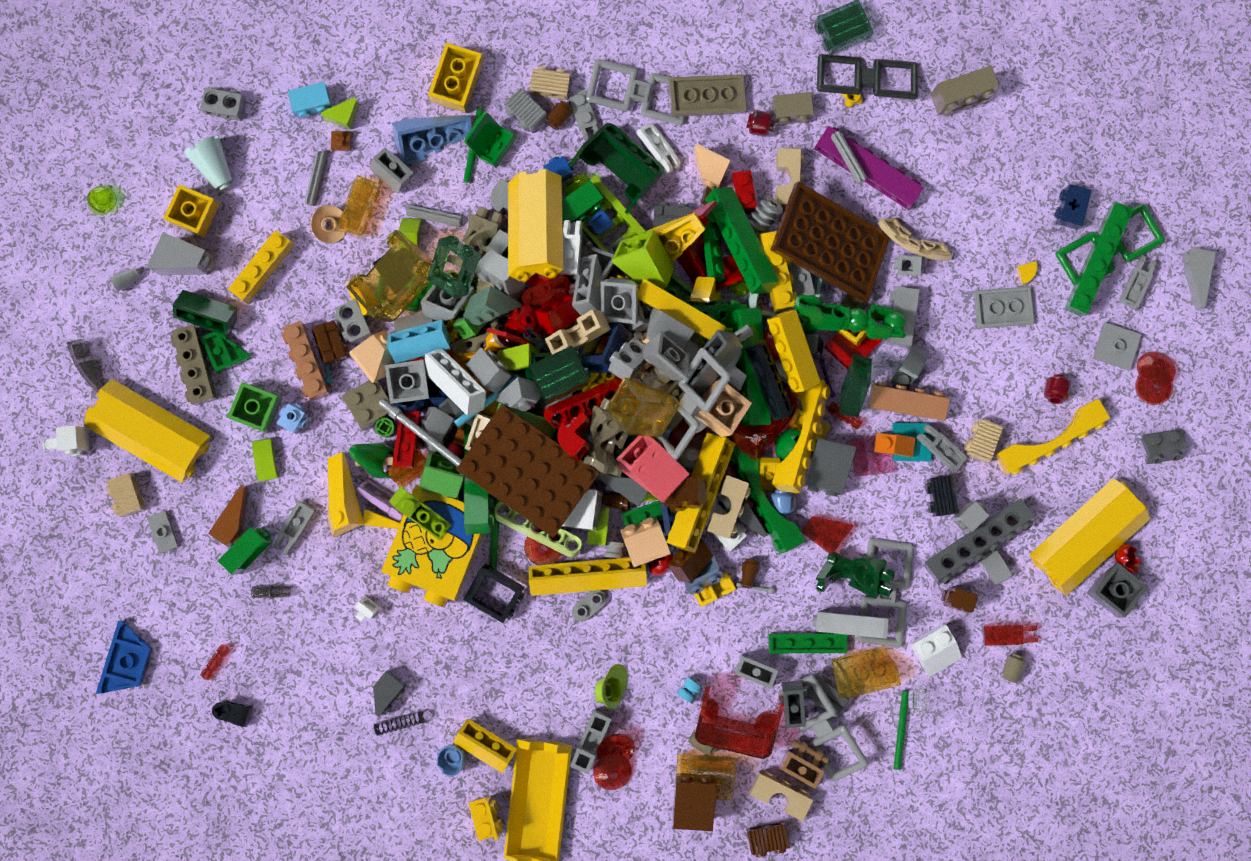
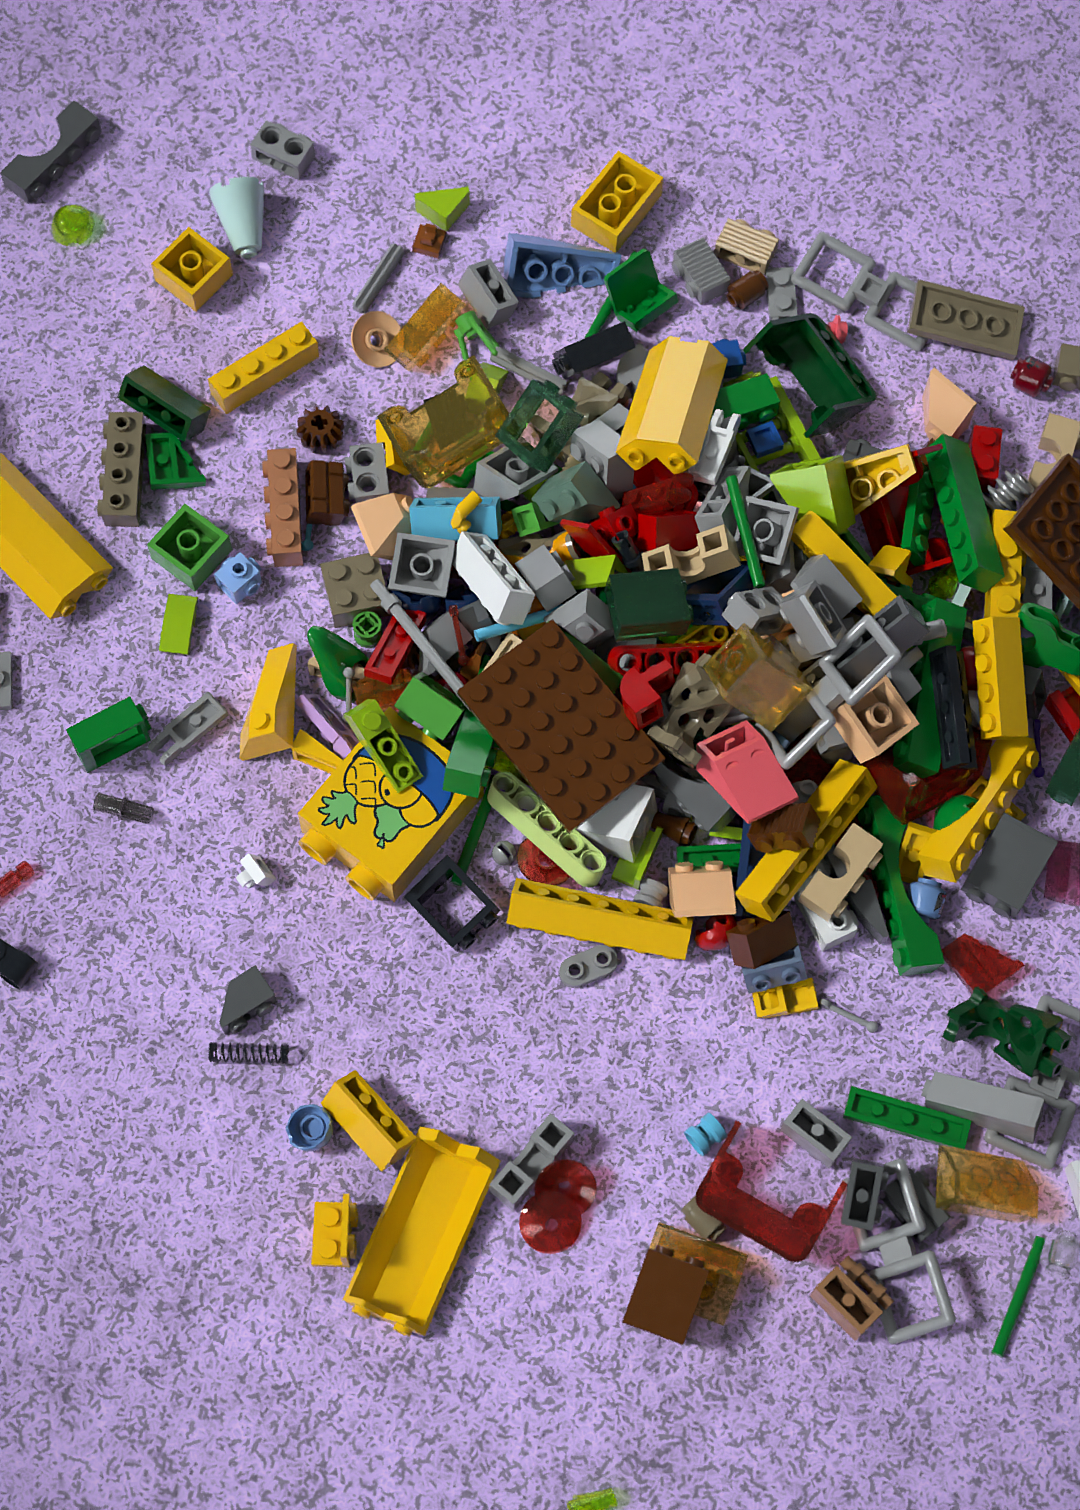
camera: 15 degrees right, 15 degrees down
(62, 173) = (31, 174): none -> dark grey arch
(124, 279) = (67, 332): light grey cone -> none
(179, 258) = (155, 322): light grey slope -> none
(231, 521) = (103, 686): dark orange slope -> none
(309, 100) = (403, 176): medium azure brick -> none
(317, 292) = (316, 438): none -> reddish brown gear
(388, 197) = (471, 327): none -> bright green plant
(391, 488) = (348, 674): none -> light grey hinge
(422, 339) = (462, 510): none -> yellow arm
(452, 435) = (463, 659): none -> clear red hinge
(471, 193) = (593, 350): none -> black window
(512, 551) = (500, 857): none -> light grey hinge
(607, 306) = (745, 532): none -> green bar
(612, 687) = (588, 1092): lime piece -> none
(626, 126) = (838, 328): none -> coral plate
(659, 147) = (877, 369): white hinge -> none
(750, 570) = (846, 987): reddish brown cone -> none
(766, 786) = (826, 1352): tan arch -> none
(768, 838) = (764, 1398): reddish brown brick -> none
(834, 409) = (1051, 808): clear red axle -> none

